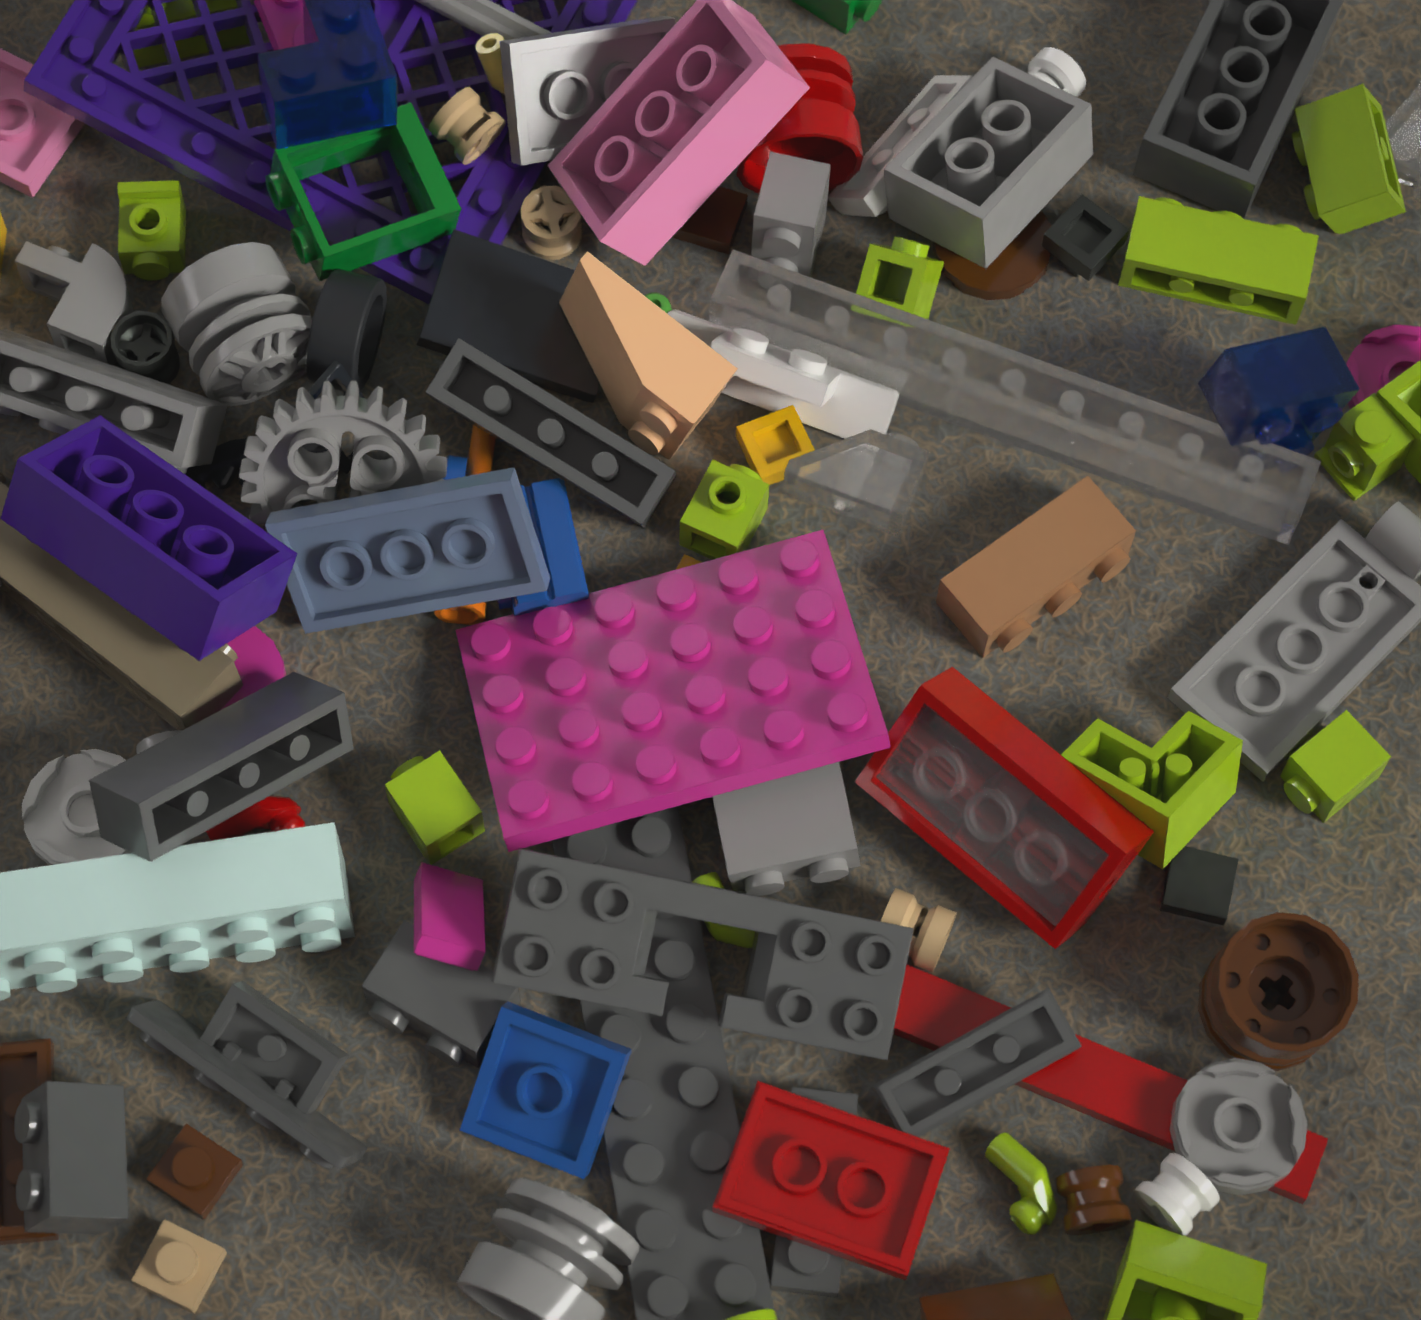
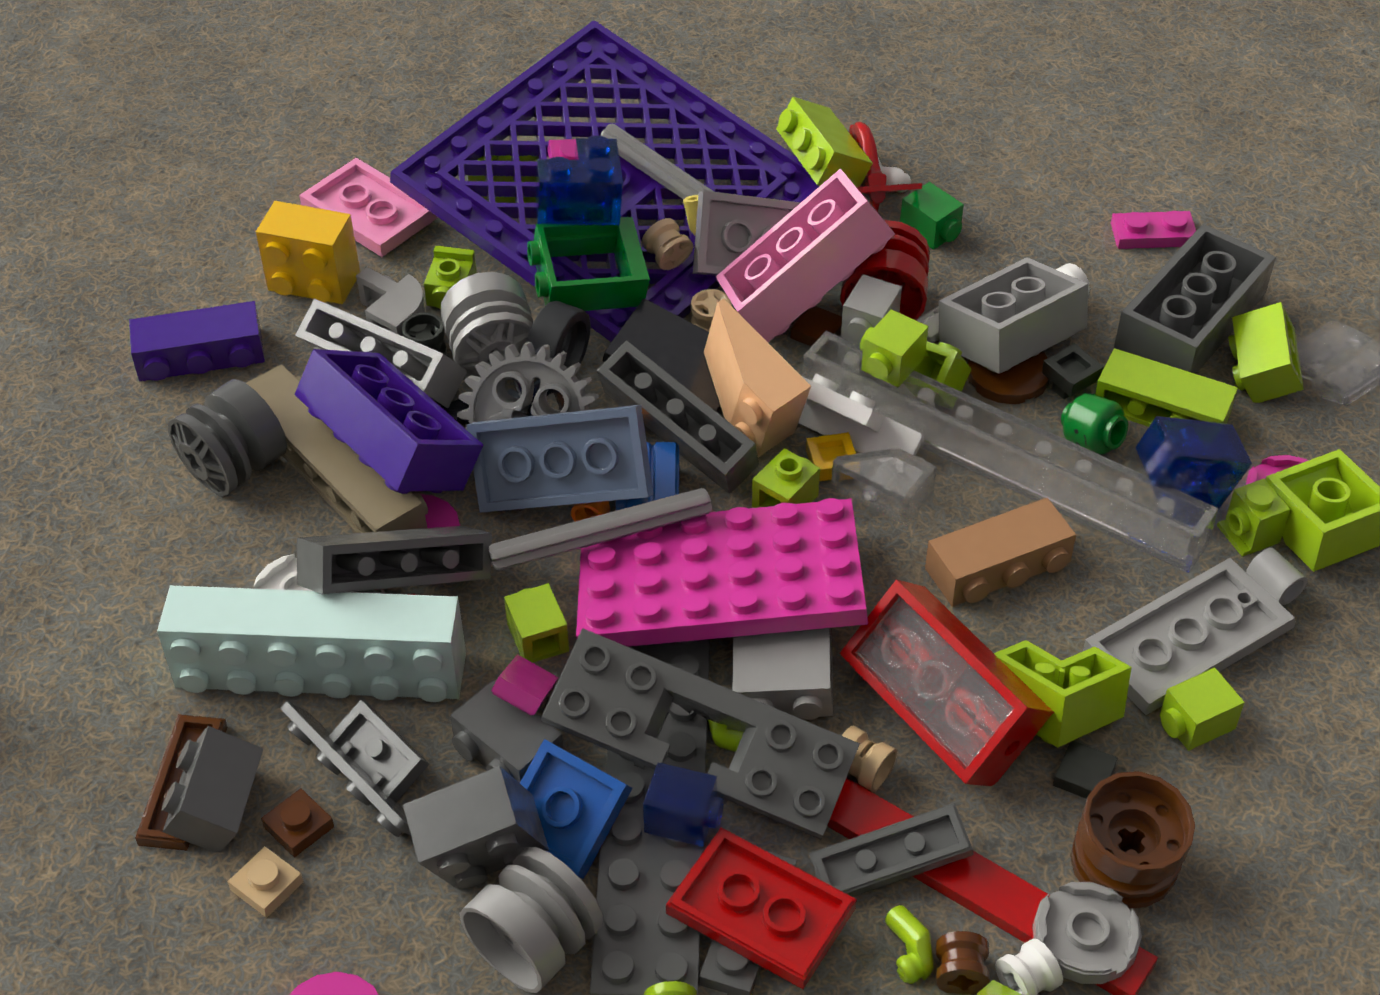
camera: 15 degrees right, 20 degrees down
(458, 1151) = (474, 827): none -> dark grey brick
(490, 651) = (599, 529): none -> light grey axle
(702, 1061) = (682, 804): none -> clear blue brick
(838, 278) = (893, 348): none -> lime brick
(1128, 324) = (1094, 423): none -> green head

